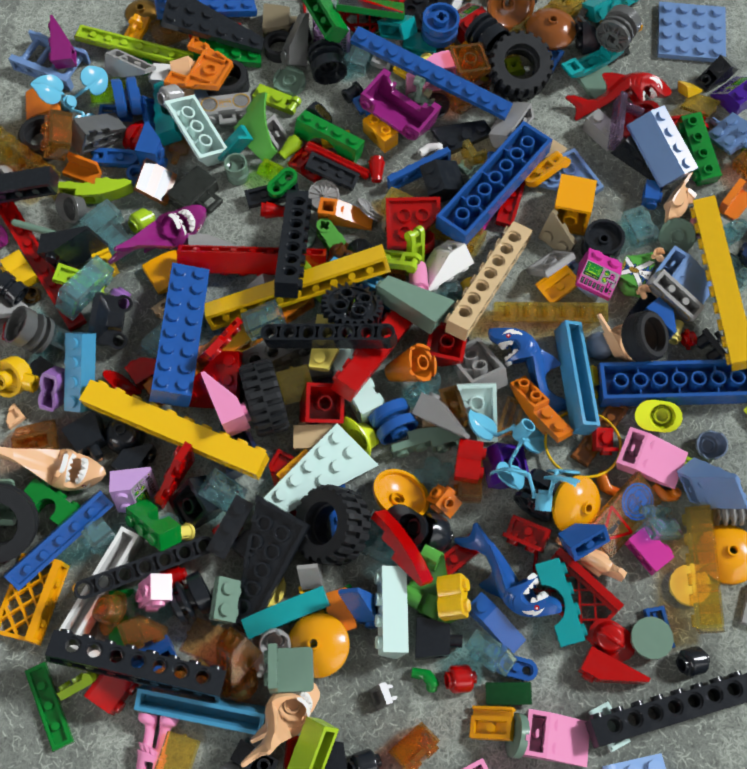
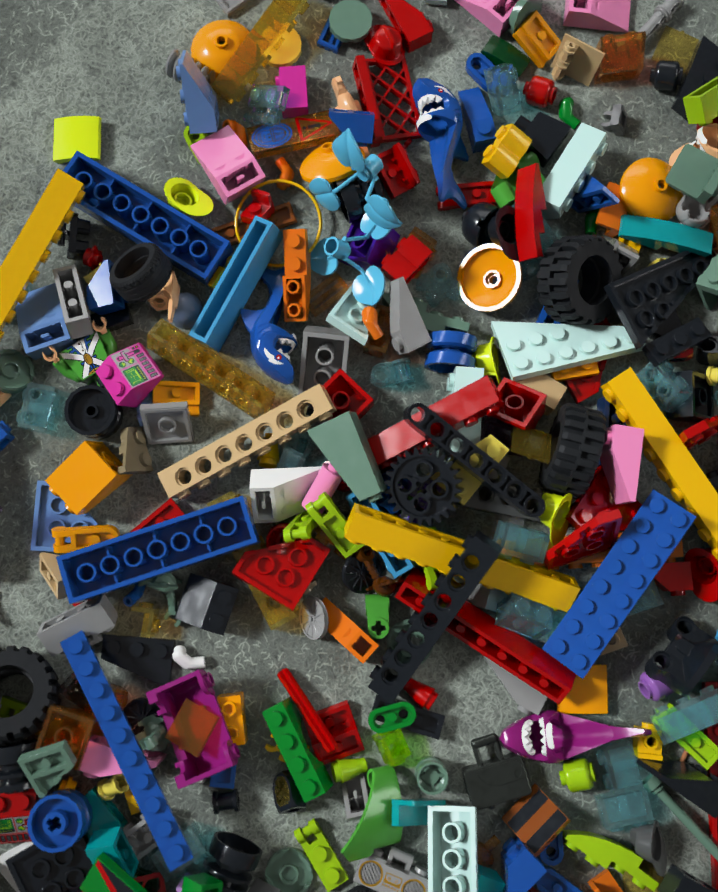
camera: 150 degrees left, 15 degrees up
(232, 283) = (524, 616): none -> clear light blue brick
(250, 345) = (554, 515): none -> neon yellow piece
(323, 188) = (349, 677): light grey wheel -> none
(332, 171) = (323, 698): black plate -> none
(376, 167) = (268, 672): red cone -> none
(400, 108) = (192, 727): none -> clear orange piece
(412, 365) = (393, 390): orange cone -> none
(413, 172) = (233, 640): blue plate -> none
(443, 500) = (452, 247): orange brick -> none
(457, 720) = (576, 60): none -> tan hinge
(464, 400) = (370, 320): none -> orange arm
(467, 37) = (47, 765): none -> sand green wing
(552, 575) = (402, 117): teal arch -> none
(711, 445) = (160, 143): sand blue hair -> none

